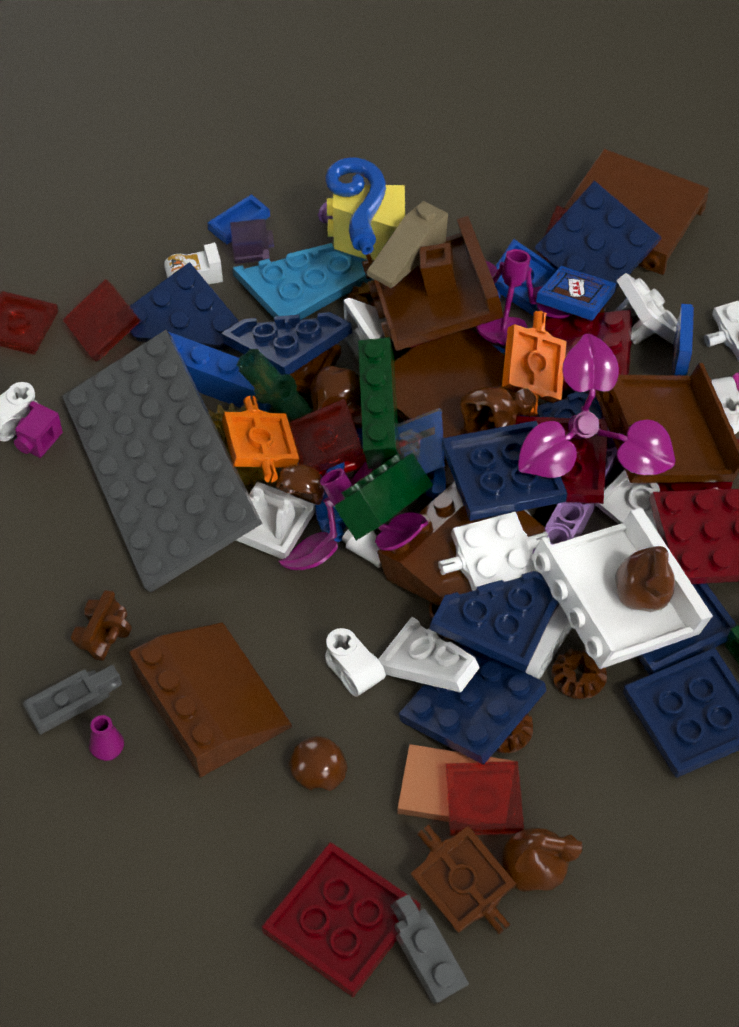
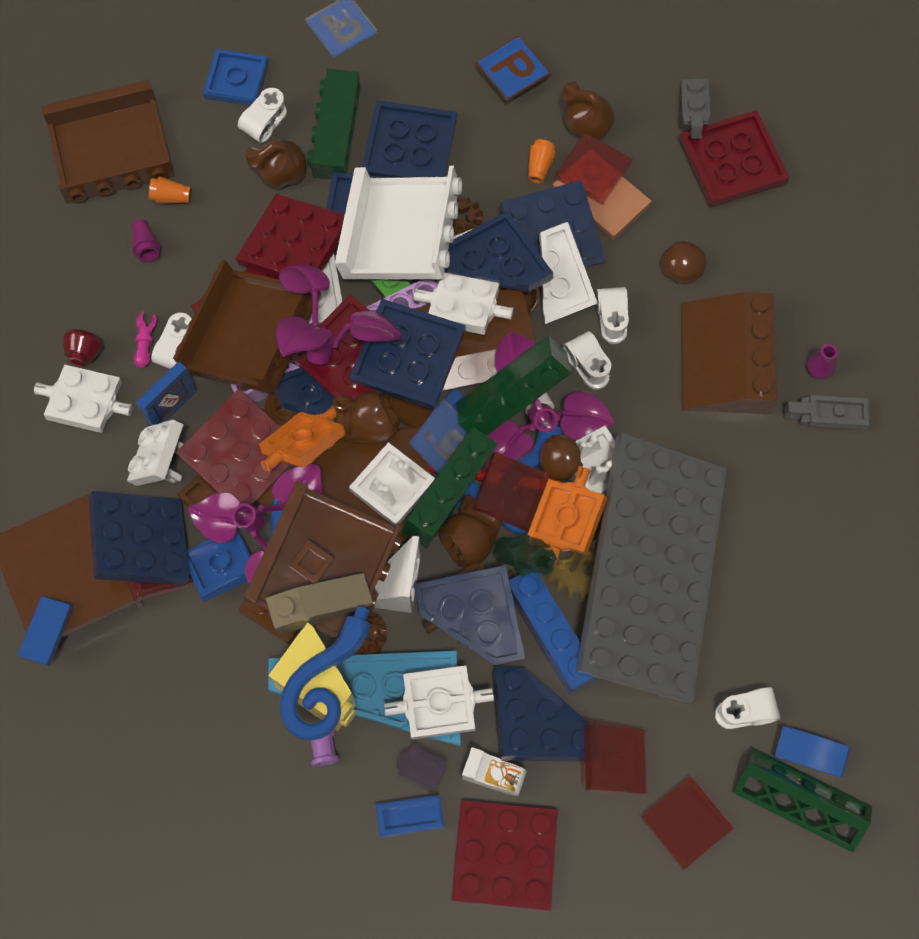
camera: 145 degrees left, 15 degrees up
(38, 430) = (735, 673): magenta brick -> none
(105, 624) = (787, 447): reddish brown hips -> none
(147, 233) = (505, 855): none -> dark red plate
(268, 273) = (439, 702): none -> white plate
(345, 605) = (589, 360): none -> white piece
(430, 379) = (392, 484): none -> white plate
(463, 879) = (644, 129): reddish brown plate -> none
(548, 779) = (540, 160): none -> orange cone
(576, 293) = (201, 498): blue tile -> none
(603, 156) = (45, 631): none -> blue tile
(646, 580) = (382, 206): reddish brown piece -> none
(664, 864) = (513, 68): none -> blue piece

